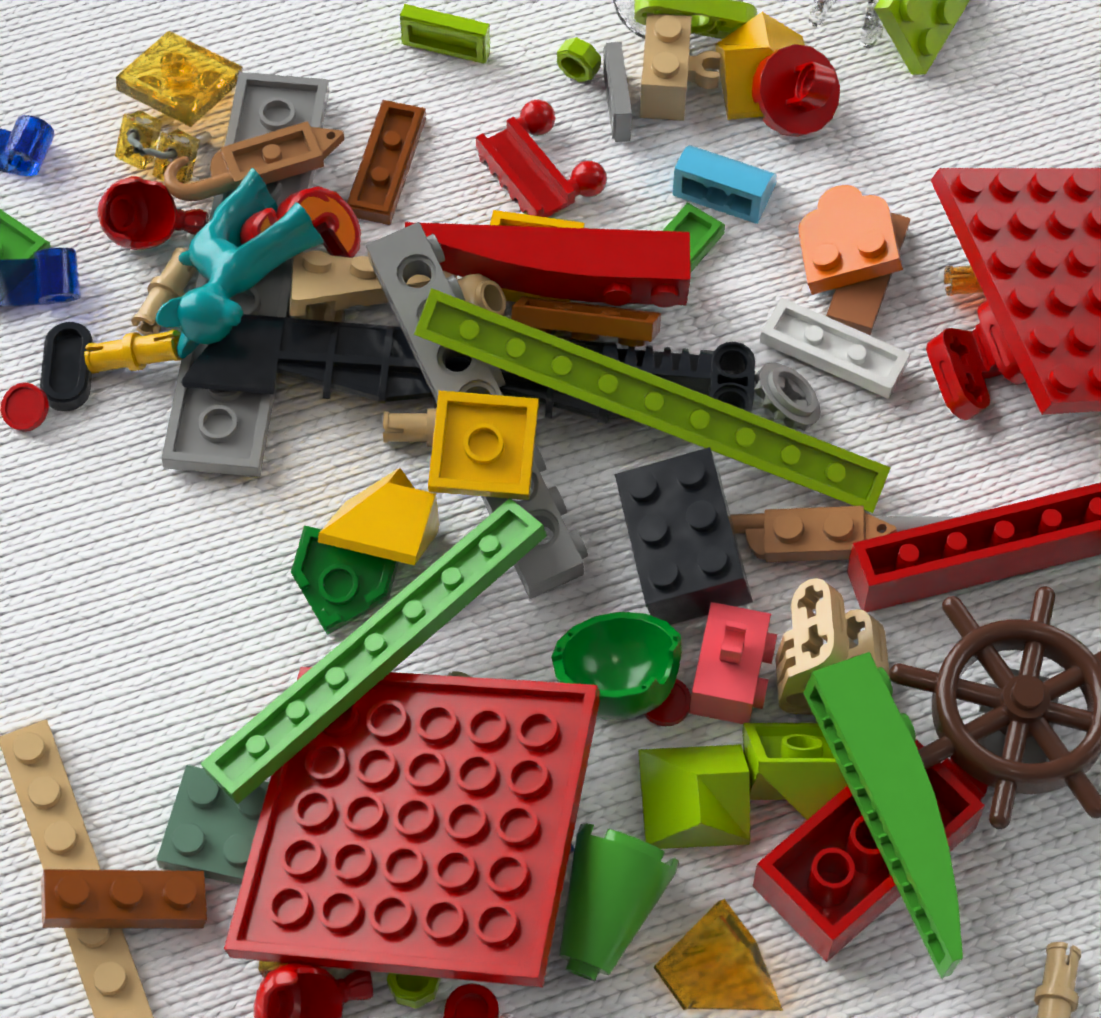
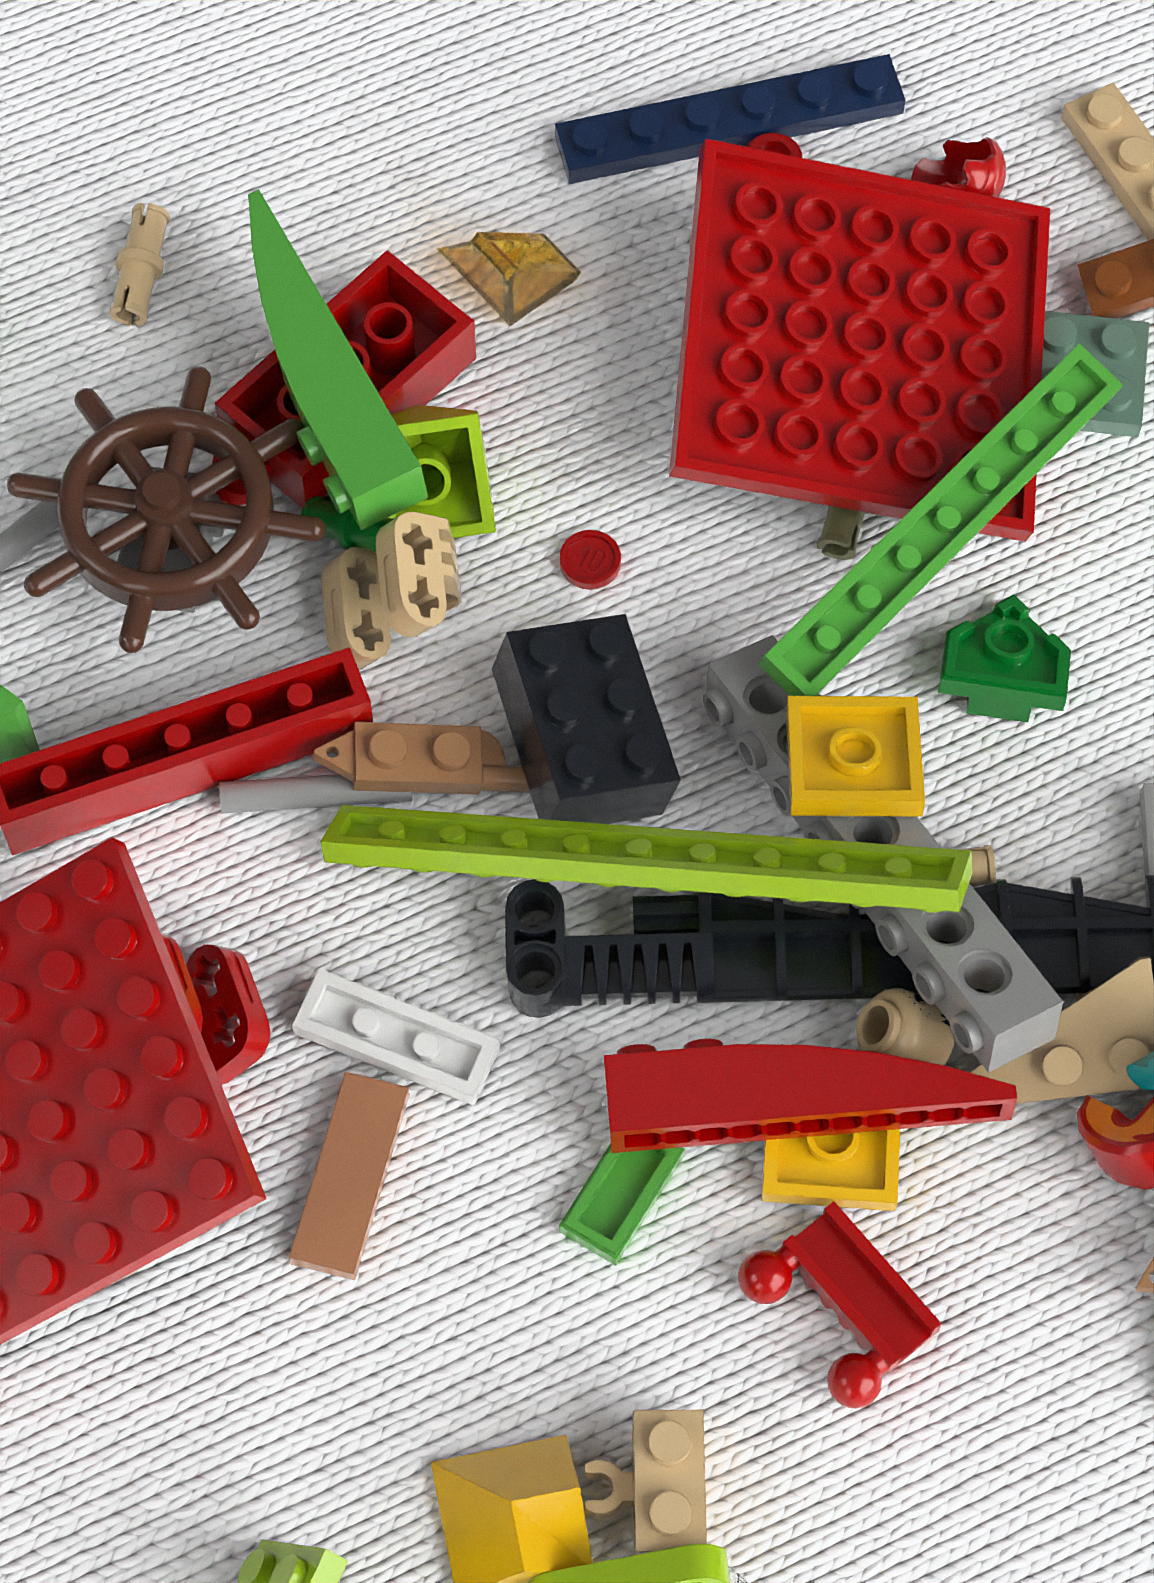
camera: 175 degrees right, 5 degrees up
(386, 161) = (1068, 1302): dark orange tile -> none
(386, 521) = (974, 704): yellow slope -> none
(445, 33) = (1020, 1527): lime tile -> none
(578, 59) = (804, 1499): lime tile -> none
(588, 320) = (696, 1008): dark orange plate -> none
(609, 898) = (631, 316): bright green cone -> none
(617, 91) = (739, 1440): light grey tile -> none
(626, 656) = (655, 546): green cylinder -> none
(695, 796) = (548, 446): lime slope -> none
(723, 183) = (563, 1300): medium azure brick -> none
(730, 664) = (514, 582): coral brick -> none
(787, 396) = (441, 928): light grey gear -> none
(796, 90) = (461, 1449): red tile -> none
(848, 240) = (380, 1201): plate -> none

